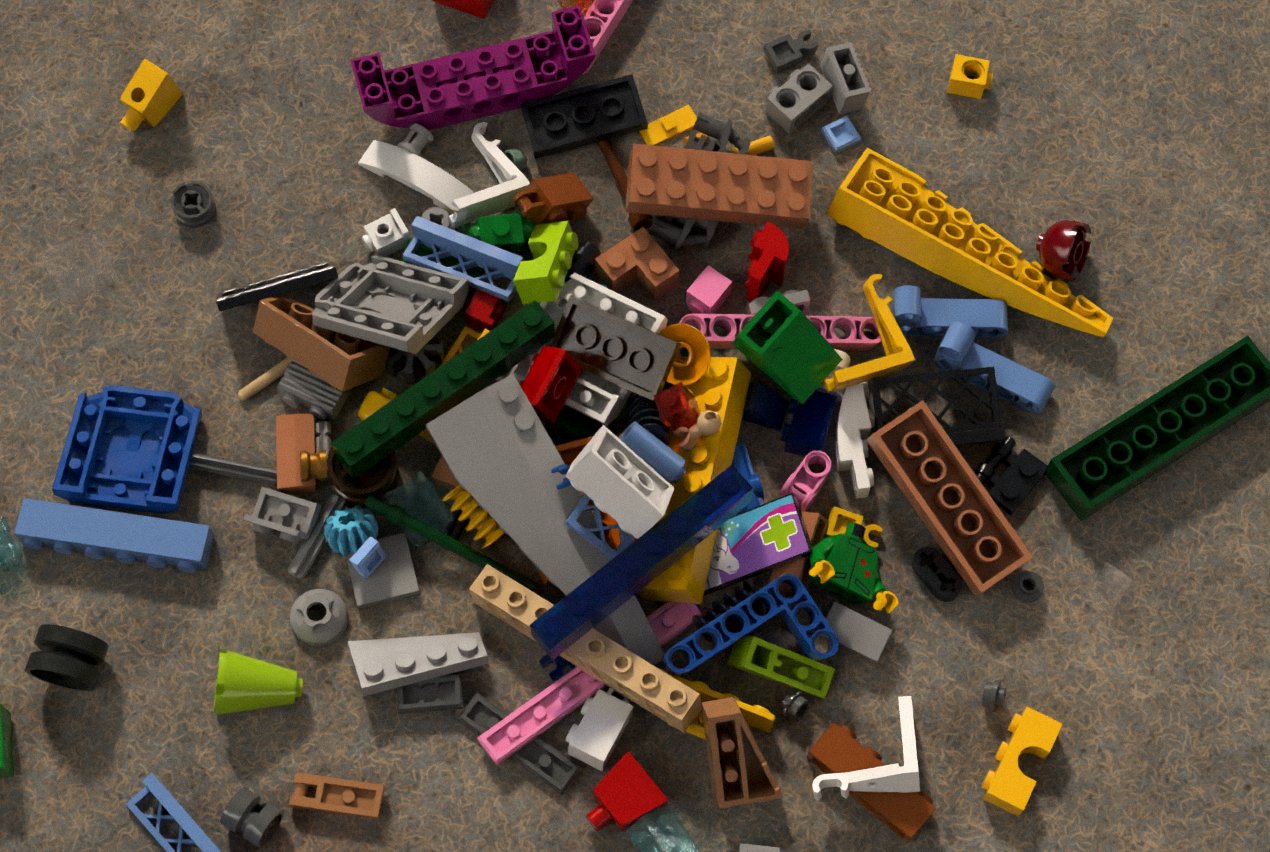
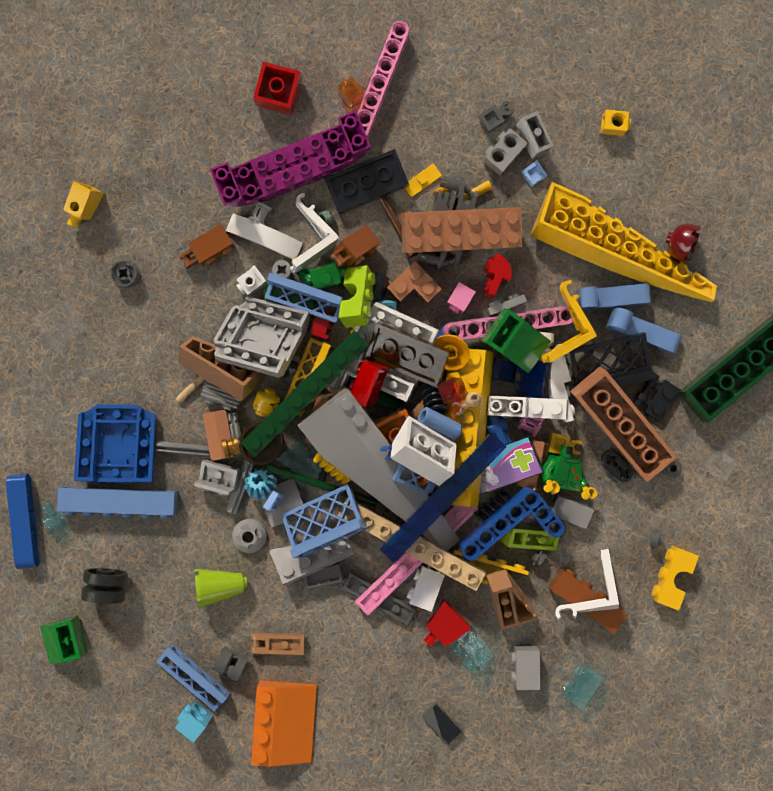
camera: 10 degrees left, 20 degrees up
(276, 286) = (188, 328): black tile -> none
(327, 180) = (208, 247): none -> dark orange brick
(448, 615) = (327, 538): none -> medium blue fence
(796, 456) = (528, 407): none -> white slope

